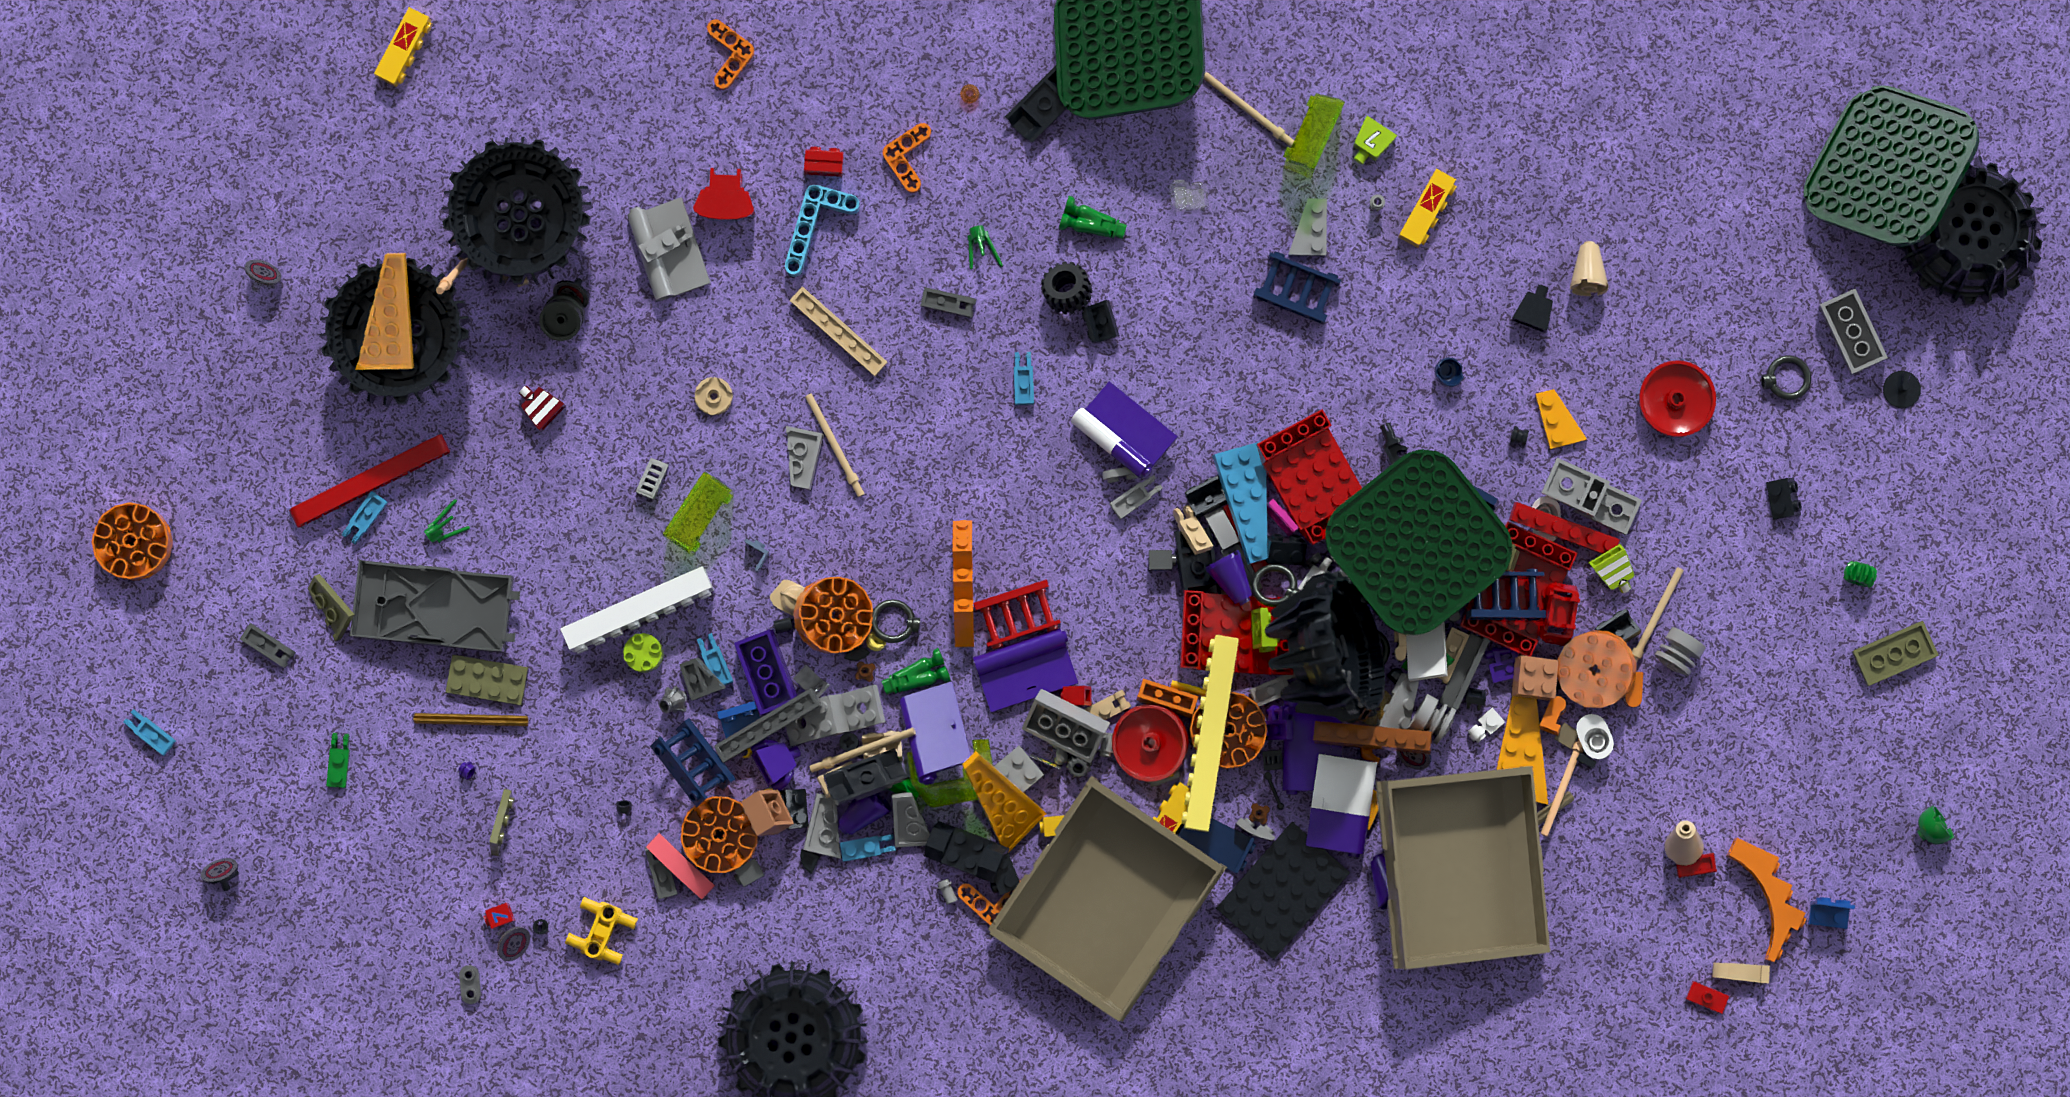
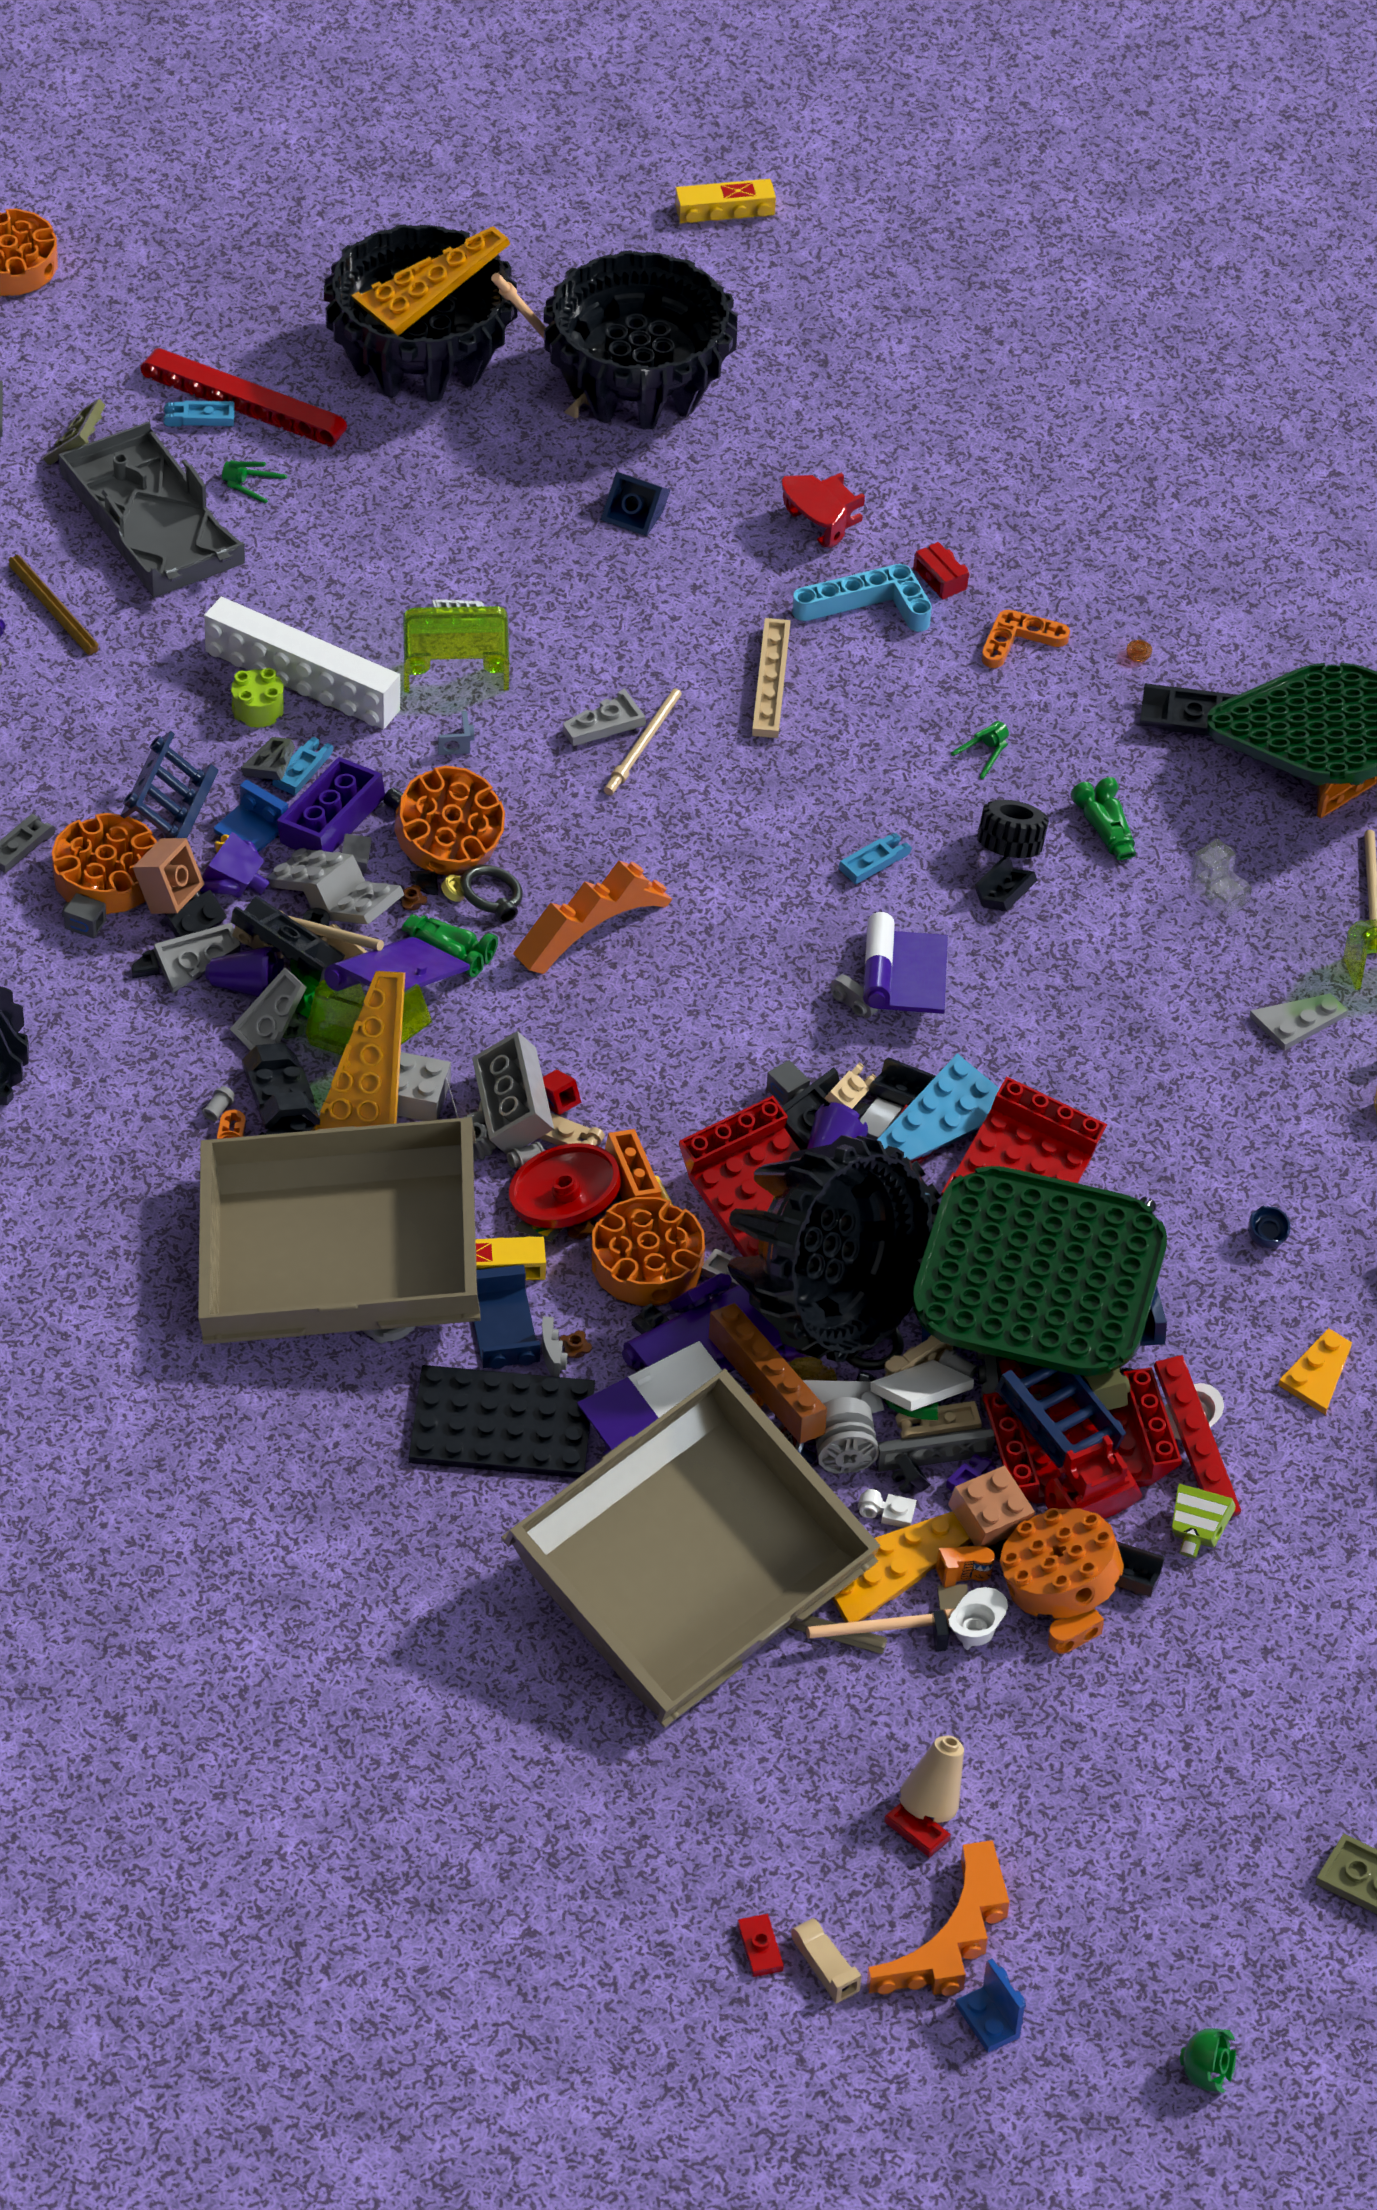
camera: 50 degrees right, 35 degrees down
(262, 273) = (385, 212): shield -> none
(487, 680) = (109, 596): olive plate -> none
(540, 406) = (451, 486): torso -> none
(562, 316) = (565, 443): pearl dark grey wheel -> none
(573, 288) = (596, 445): shield -> none
(624, 807) = (64, 776): black hinge -> none
(635, 305) = (634, 504): none -> dark blue slope
(662, 243) = (725, 484): light grey hinge -> none
(673, 701) = (225, 748): flat silver rock -> none
(678, 269) = (719, 500): light grey door -> none
(680, 866) = (37, 853): coral slope -> none
(708, 387) = (599, 615): tan plate -> none
(737, 55) = (982, 450): orange beam -> none
(767, 725) = (271, 829): dark grey plate -> none
(864, 847) = (205, 1006): dark azure hinge -> none
(947, 302) = (895, 750): dark grey plate -> none
(1002, 601) = (605, 969): red fence -> none
(1034, 663) = (560, 1033): dark purple door -> none
(1134, 498) = (839, 1026): light grey hinge -> none
(1211, 733) = (625, 1208): light yellow brick -> none
(1280, 806) = (628, 1331): black hinge -> none
(1281, 517) = (946, 1164): dark pink plate -> none
(1282, 300) = (1202, 1052): dark blue fence -> none
(1519, 436) = (1262, 1339): black wheel -> none
(1591, 496) = (1263, 1441): light grey bracket -> none
(1638, 651) = (1123, 1611): tan bar -> none
(1679, 652) = (1167, 1640): light grey wheel -> none

